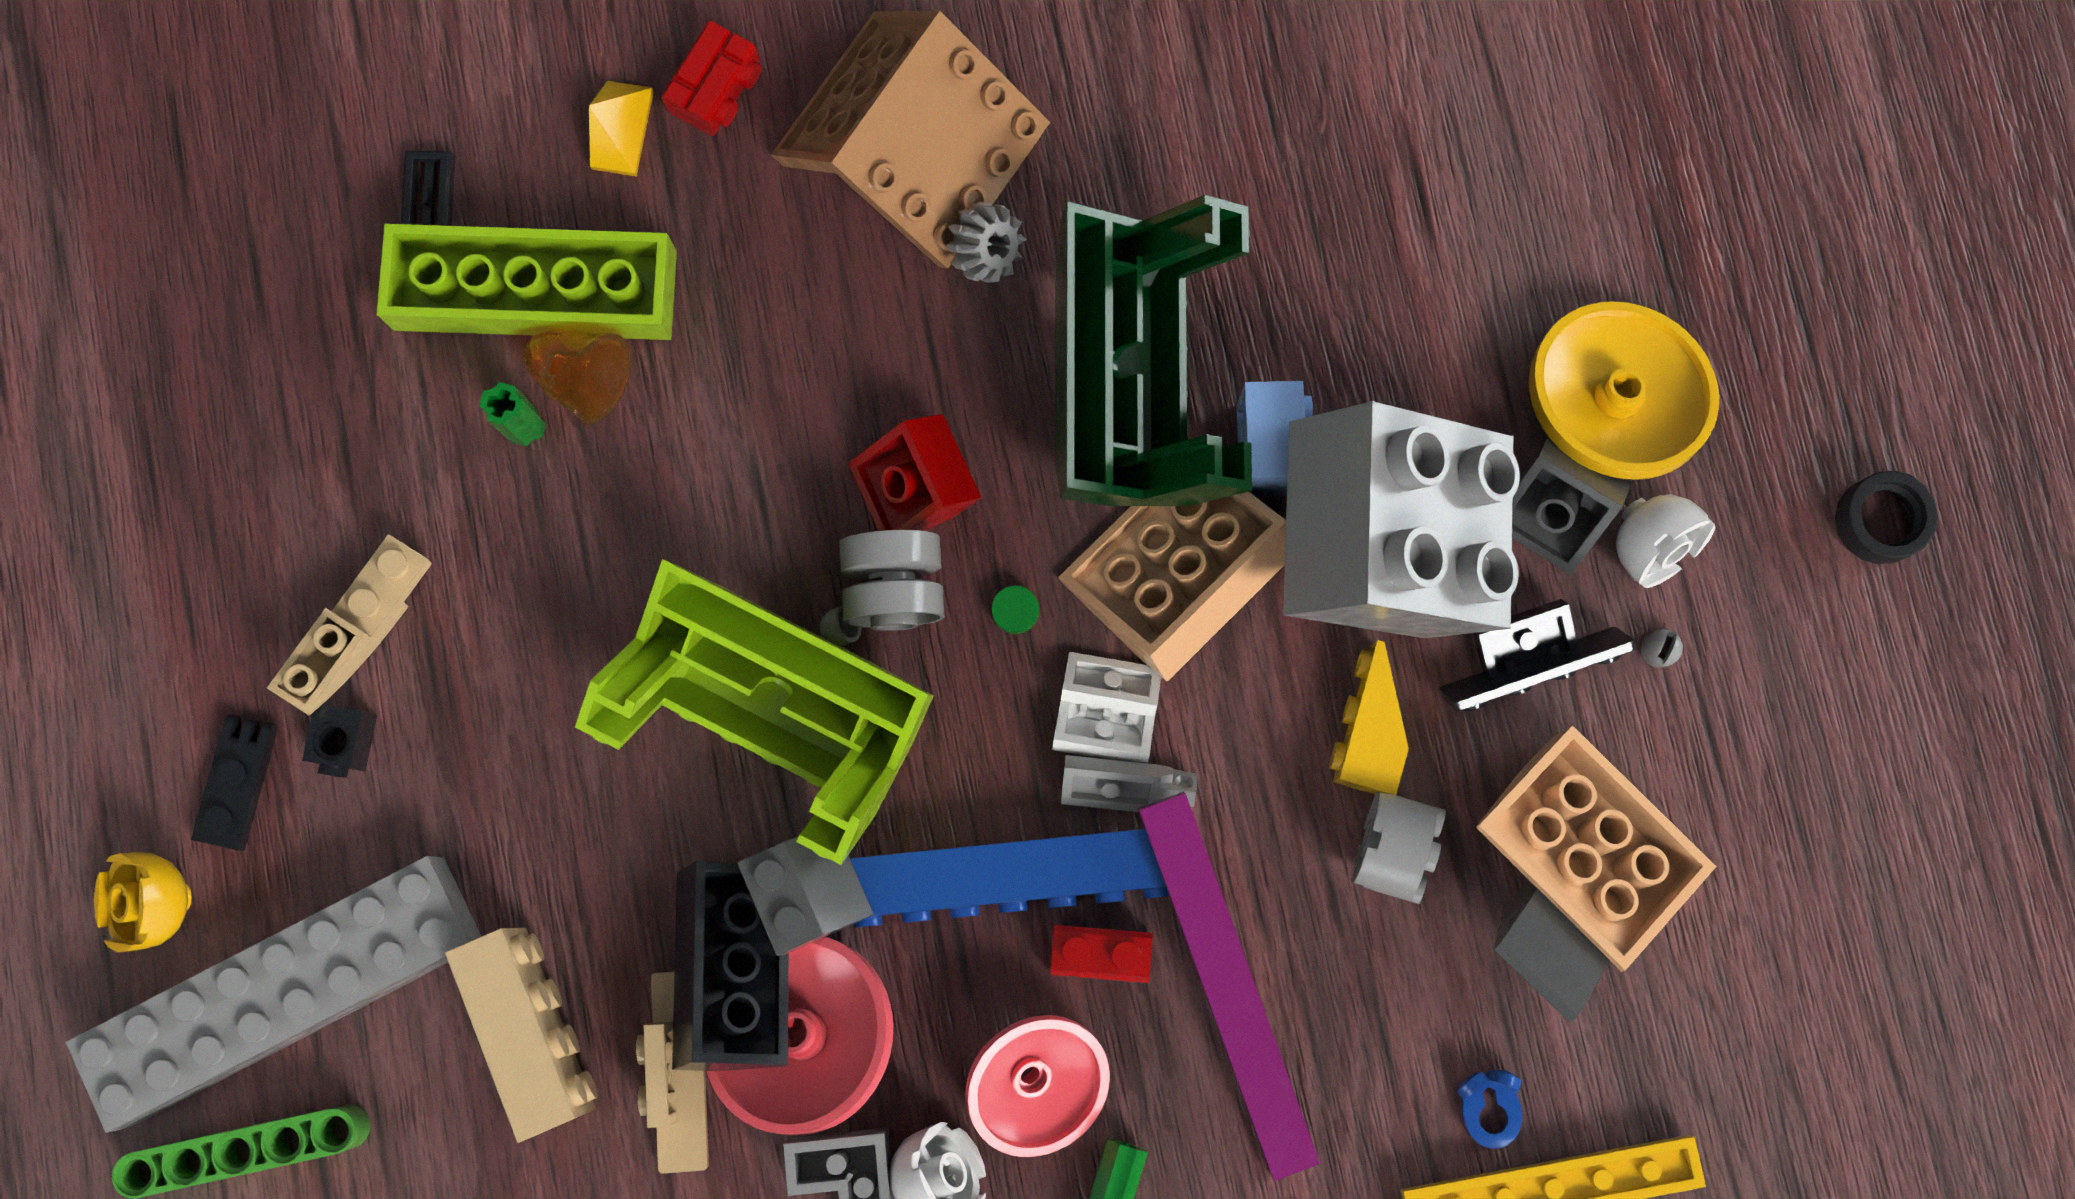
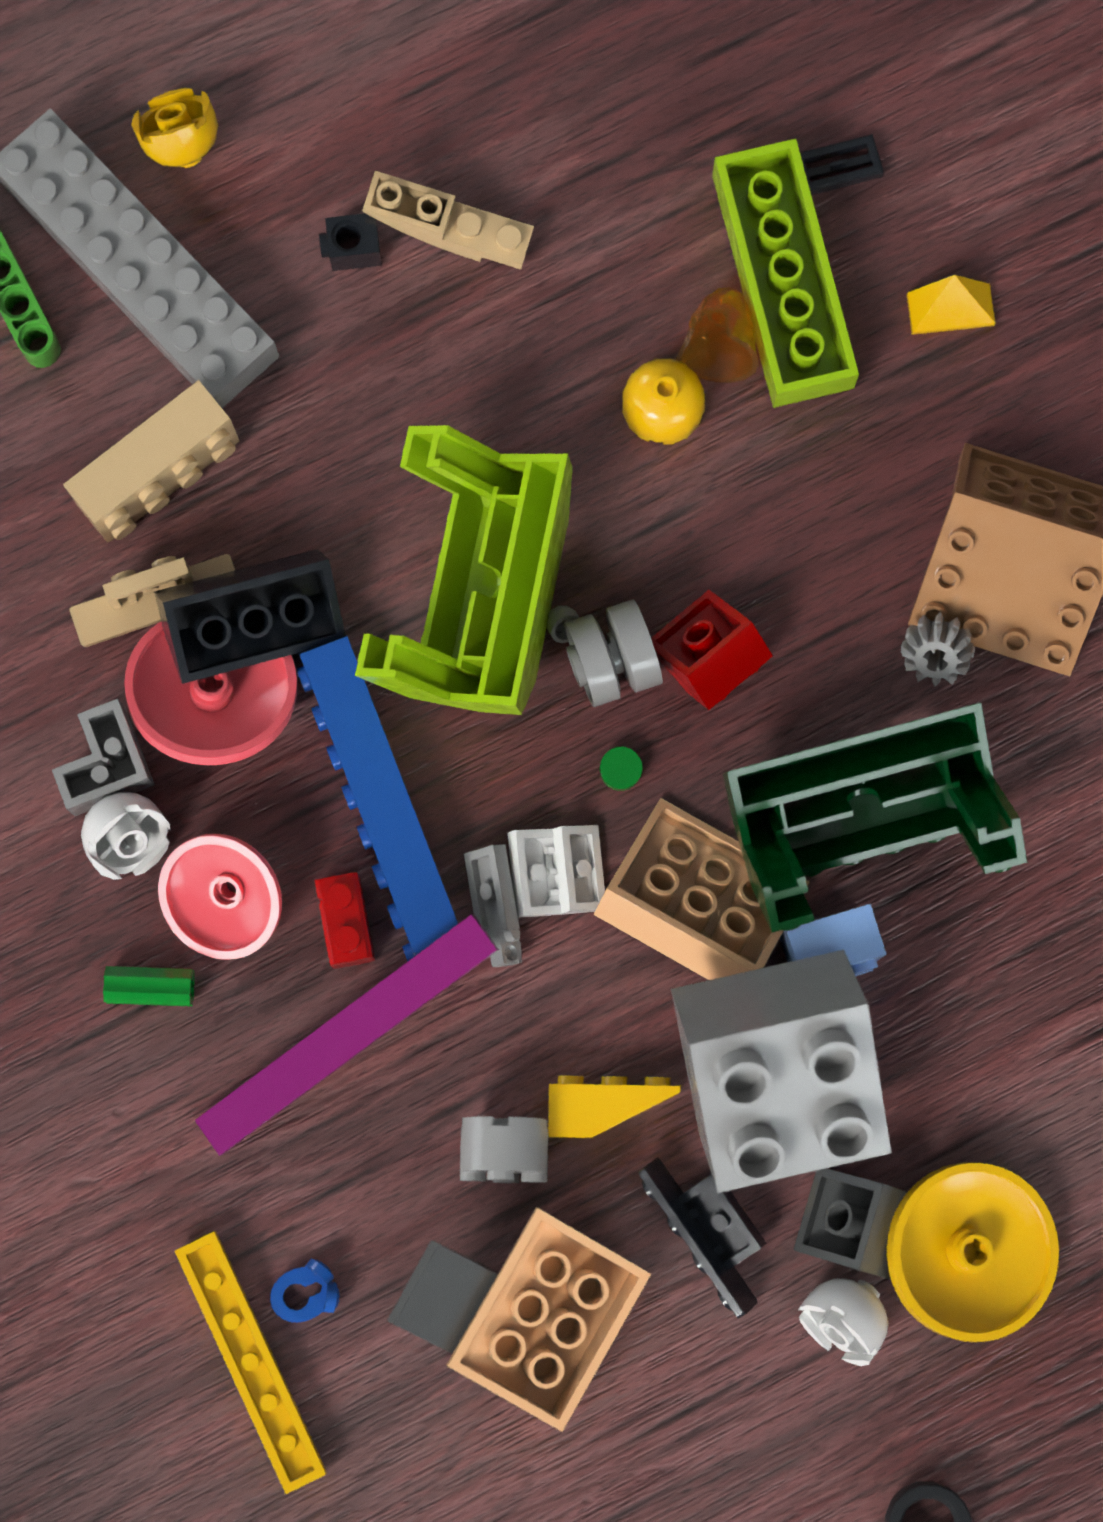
camera: 75 degrees right, 0 degrees up
(234, 783) = (293, 170): black hinge -> none
(512, 414) = (664, 295): green axle -> none
(628, 452) = (663, 401): none -> yellow cylinder
(712, 79) = (1016, 372): red brick -> none
(802, 894) = (323, 654): dark grey slope -> none
(1653, 644) = (749, 1338): light grey hinge -> none

